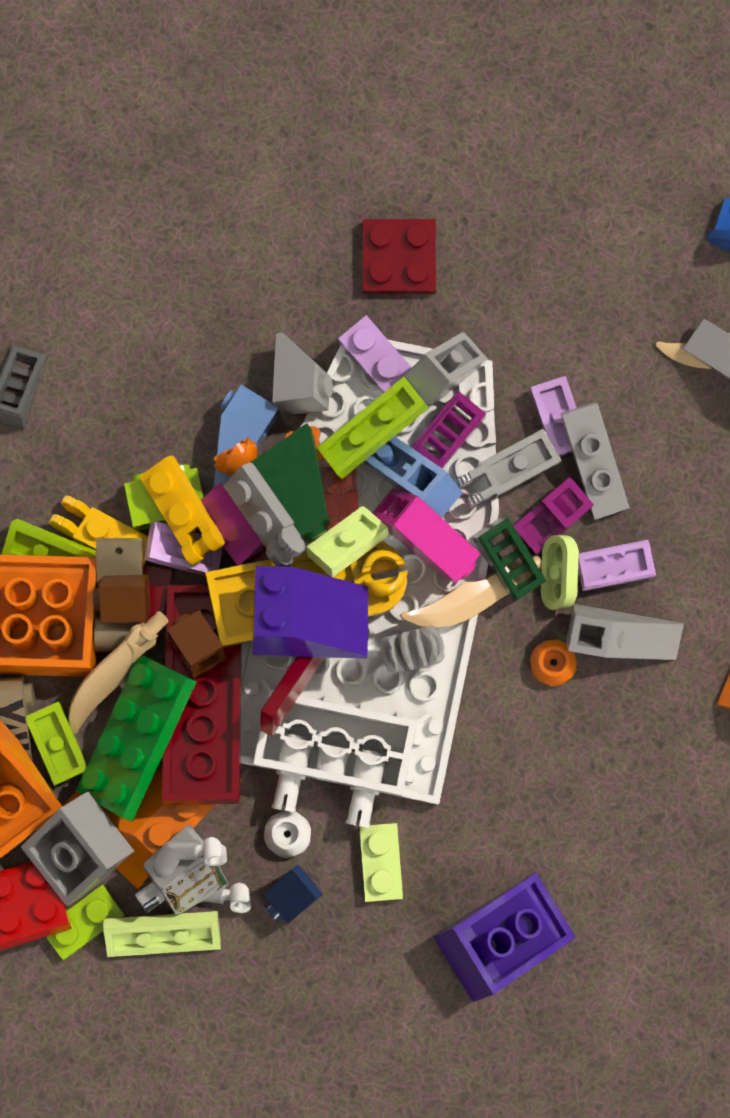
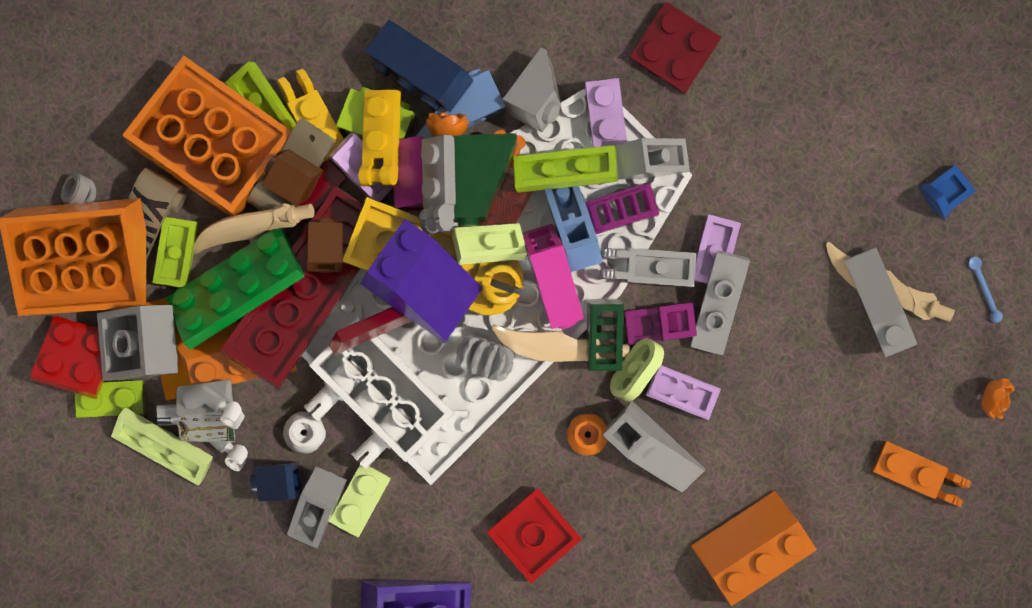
camera: 30 degrees right, 5 degrees up
(174, 423) = (418, 67): none -> dark blue brick
(345, 896) = (316, 507): none -> light grey slope
(566, 788) = (534, 535): none -> red plate

